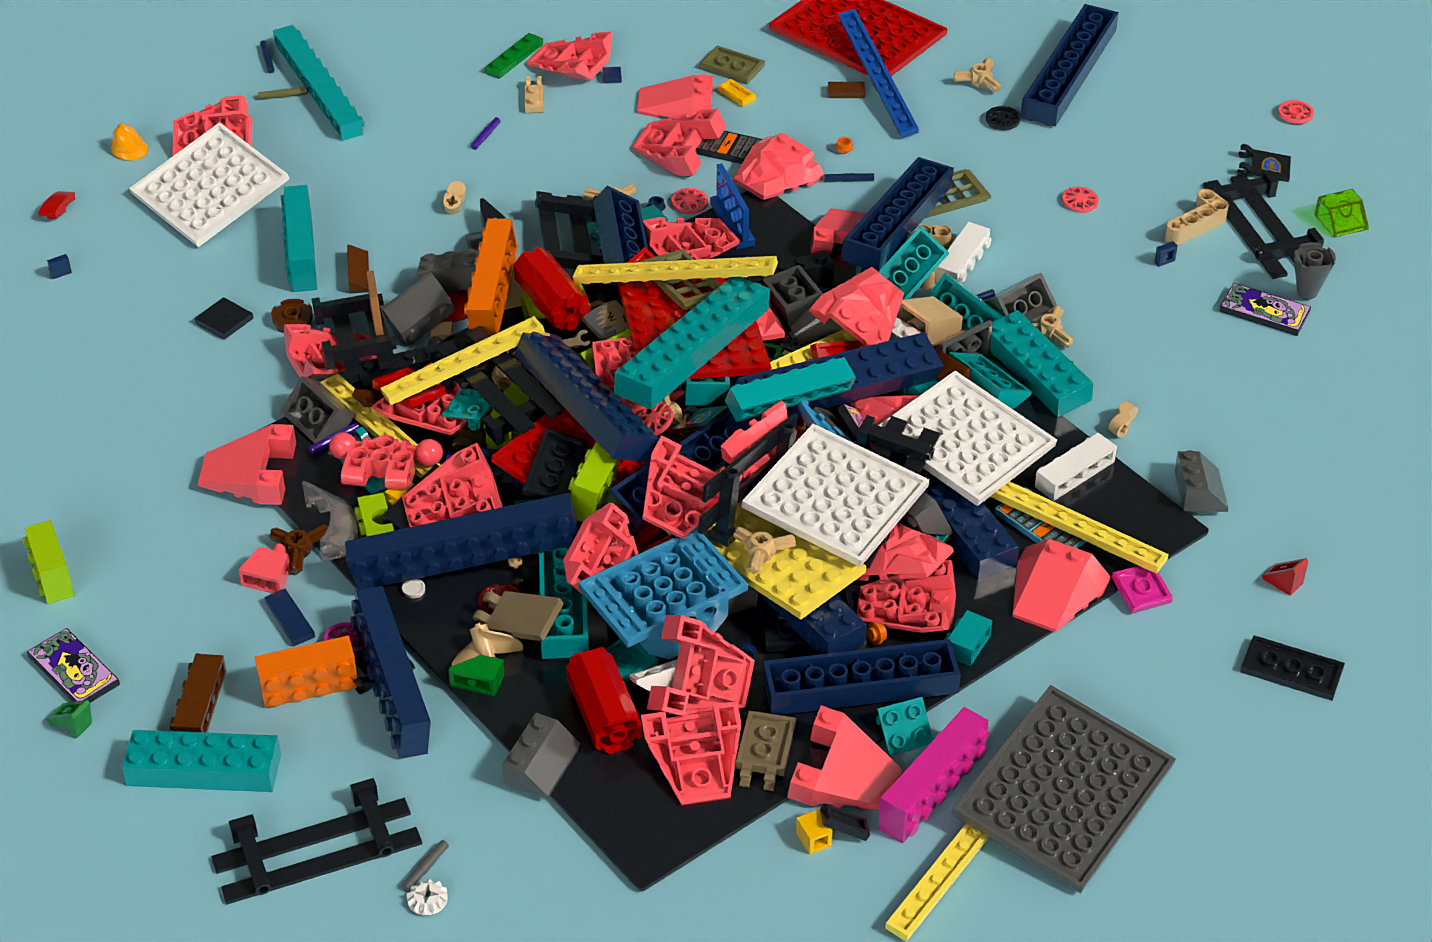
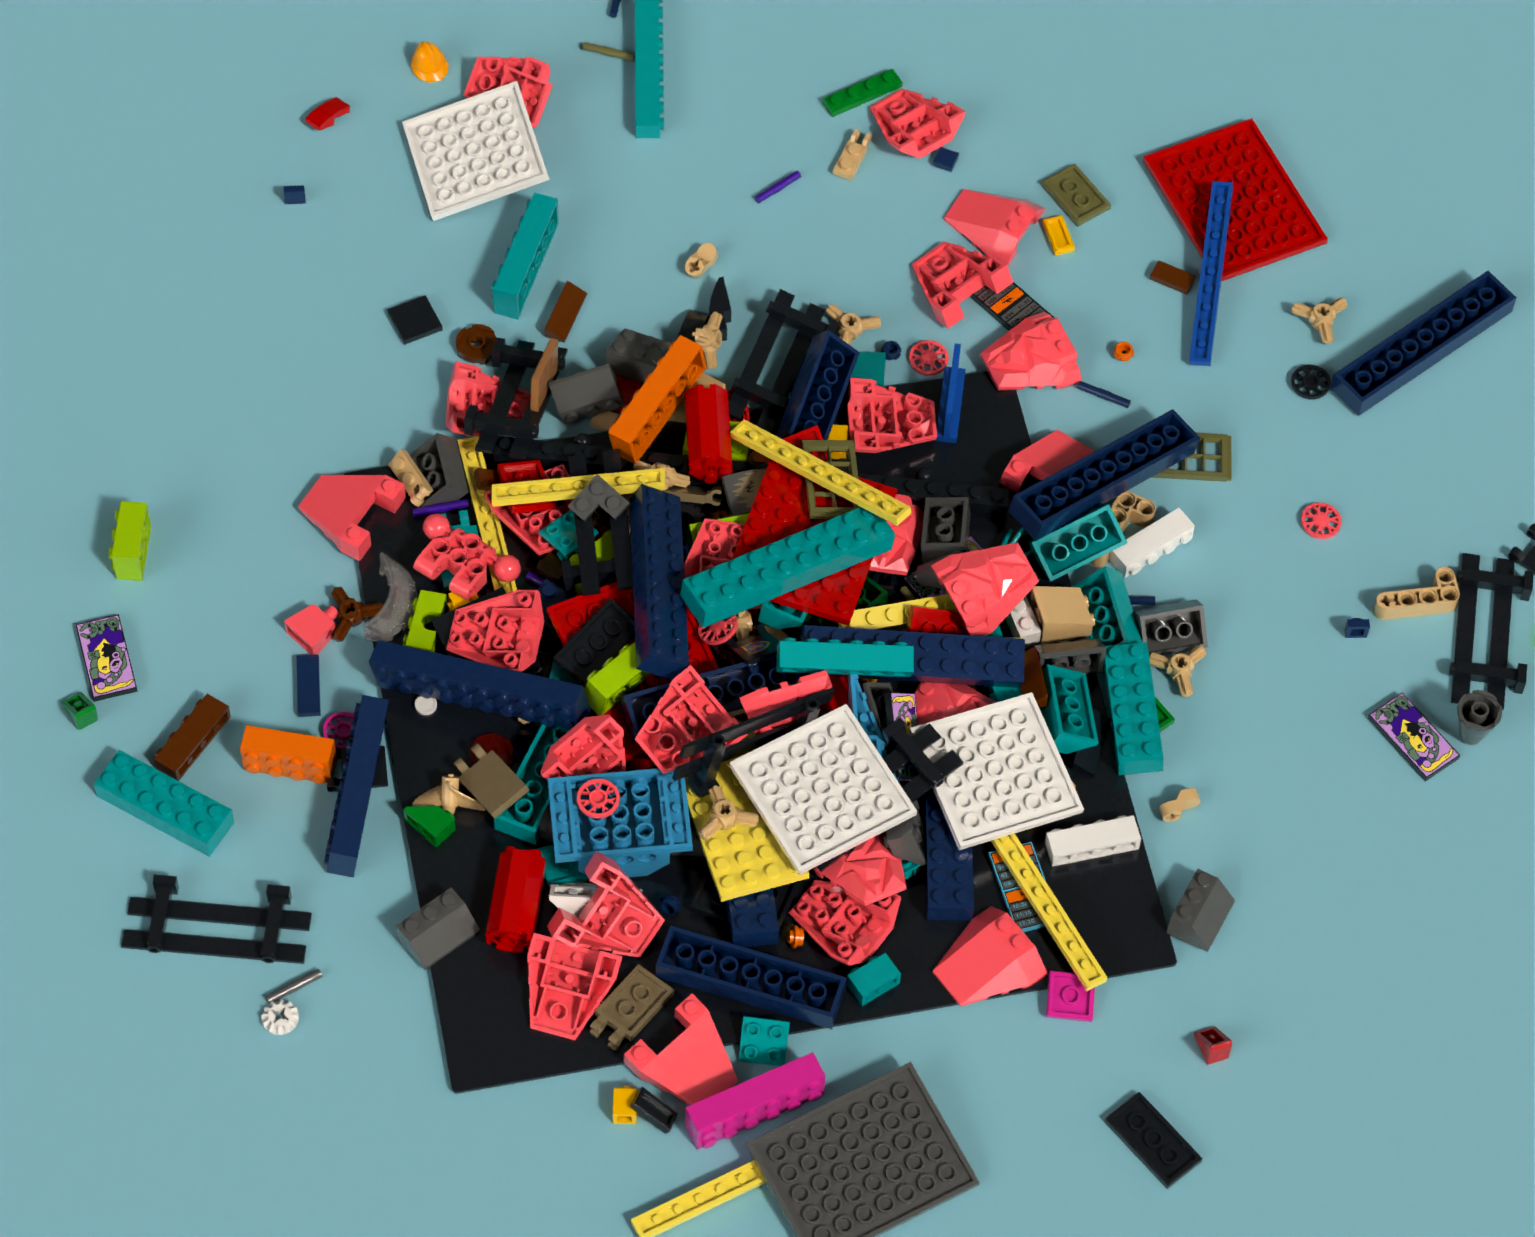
camera: 25 degrees right, 15 degrees up
(284, 416) = (411, 476): none -> tan plate
(489, 354) = (598, 494): none -> dark grey plate
(637, 578) = (598, 798): none -> coral wheel

